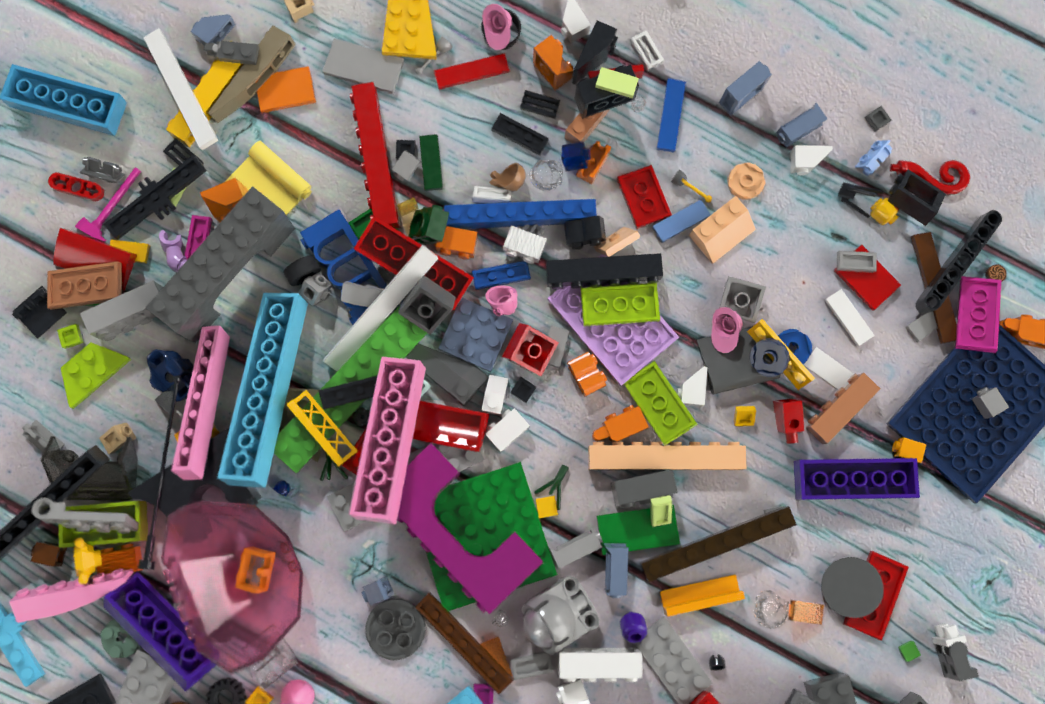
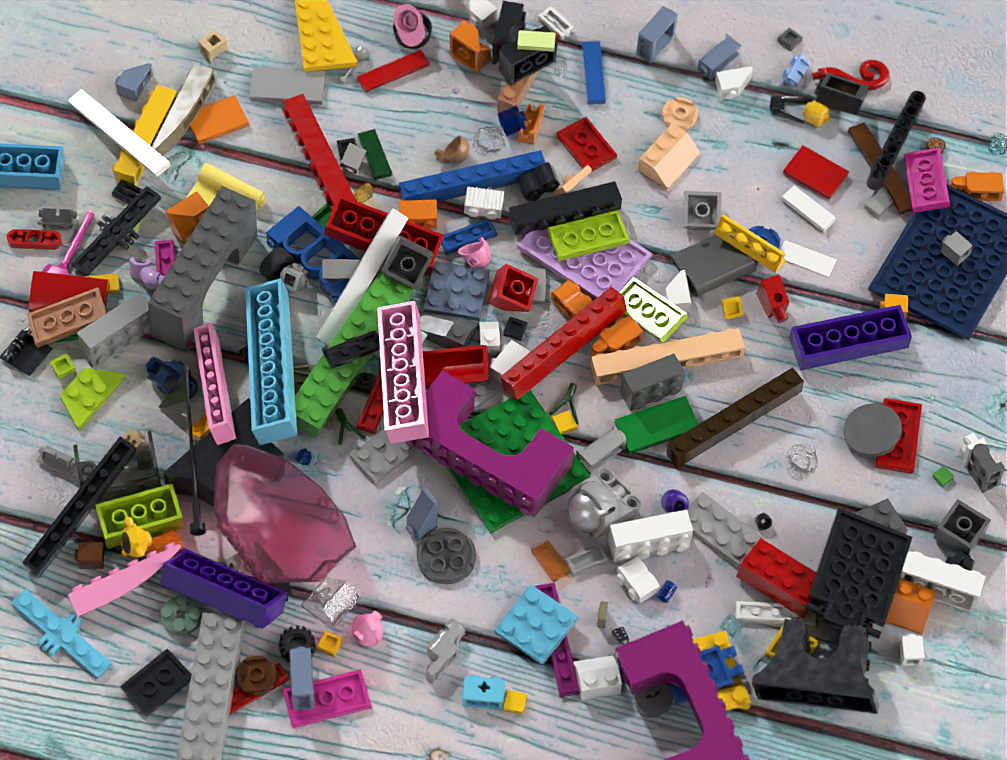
camera: 10 degrees left, 20 degrees down
(83, 520) = (103, 494): light grey hinge -> none
(233, 52) = (163, 92): dark grey hinge -> none
(255, 570) = (298, 523): orange window -> none
(313, 429) = (333, 385): yellow fence -> none
(428, 225) = (390, 196): dark green brick -> none
(464, 643) = (516, 550): reddish brown tile -> none
(491, 195) = (439, 168): white tile -> none
(520, 134) = (453, 115): black tile -> none
(556, 102) = (467, 84): black tile -> none
(565, 425) = (563, 343): none -> red brick
(616, 569) = (645, 457): sand blue window -> none
(661, 511) = (673, 395): yellowish green tile -> none
(680, 179) = (617, 123): hinge -> none
(681, 221) = (626, 159): medium blue tile -> none
(701, 595) = (733, 468): light orange panel -> none
(725, 329) = (693, 235): bright pink piece -> none
(775, 348) = (750, 246): dark blue tile -> none
(806, 612) = (834, 458): clear orange tile -> none
(842, 408) = (822, 282): nougat brick -> none
(856, 261) = (801, 159): light grey tile -> none

